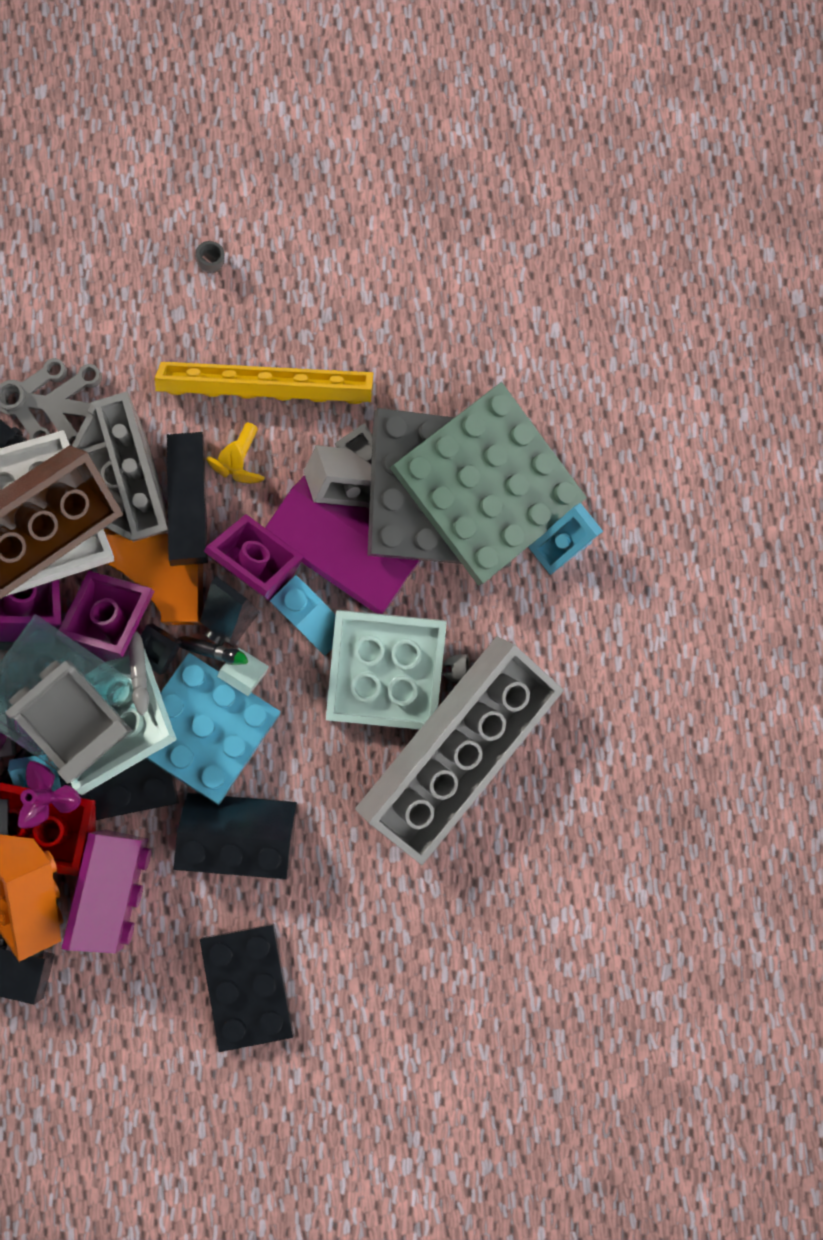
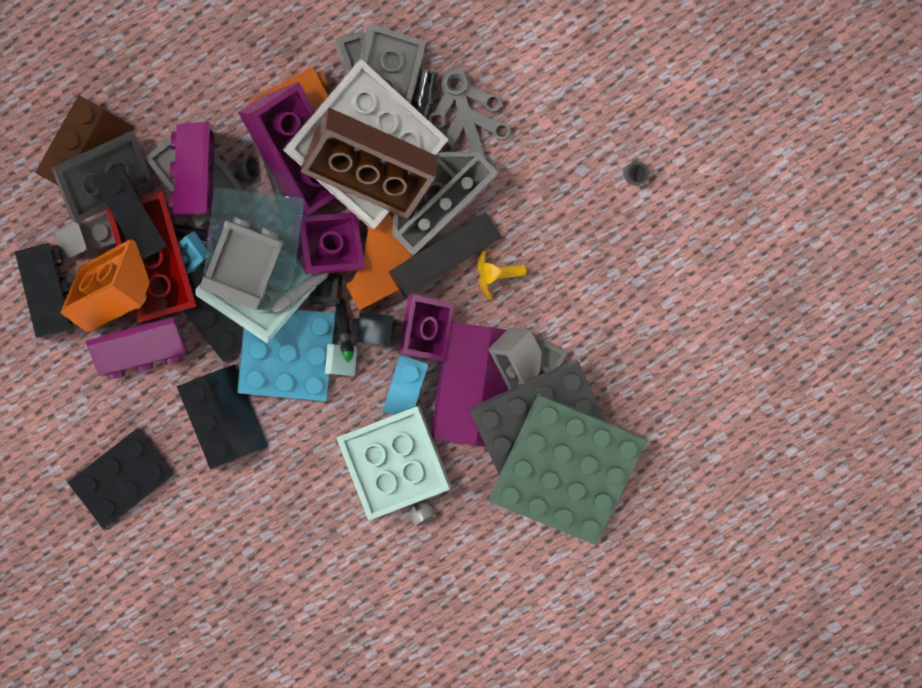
camera: 65 degrees right, 5 degrees up
(38, 798) = (168, 270): magenta plant -> none
(258, 381) = (561, 264): yellow plate -> none
(459, 749) = (362, 545): light grey brick -> none
(565, 538) = (556, 545): medium azure slope -> none

